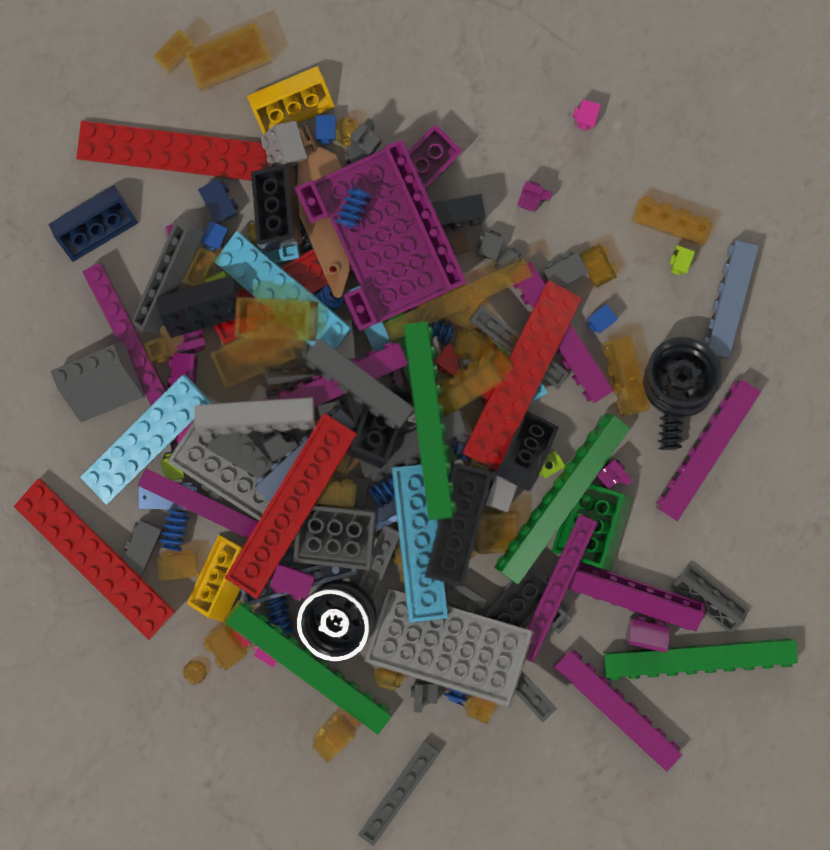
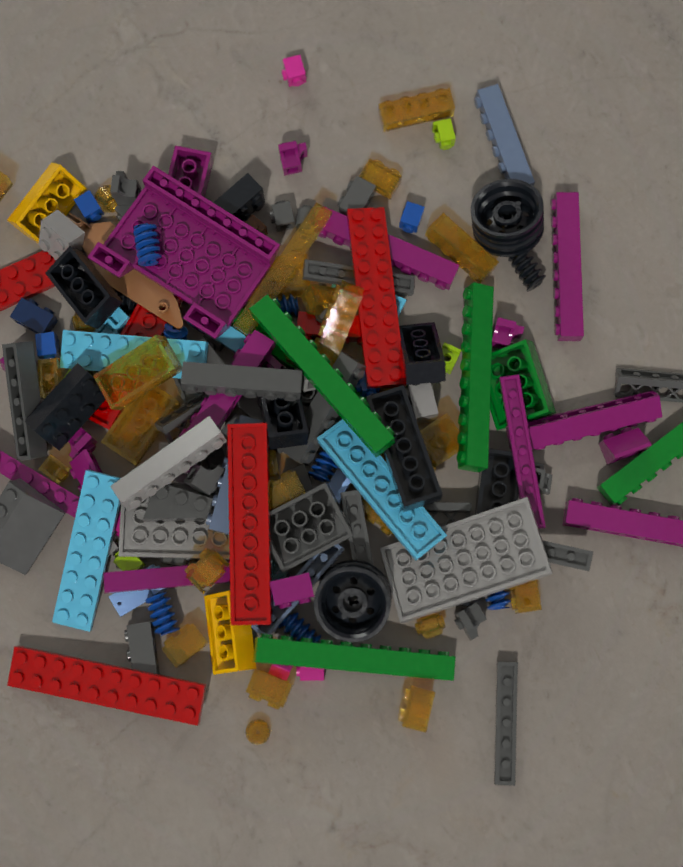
camera: 30 degrees left, 10 degrees down
(232, 521) = (206, 570): none -> clear yellow brick

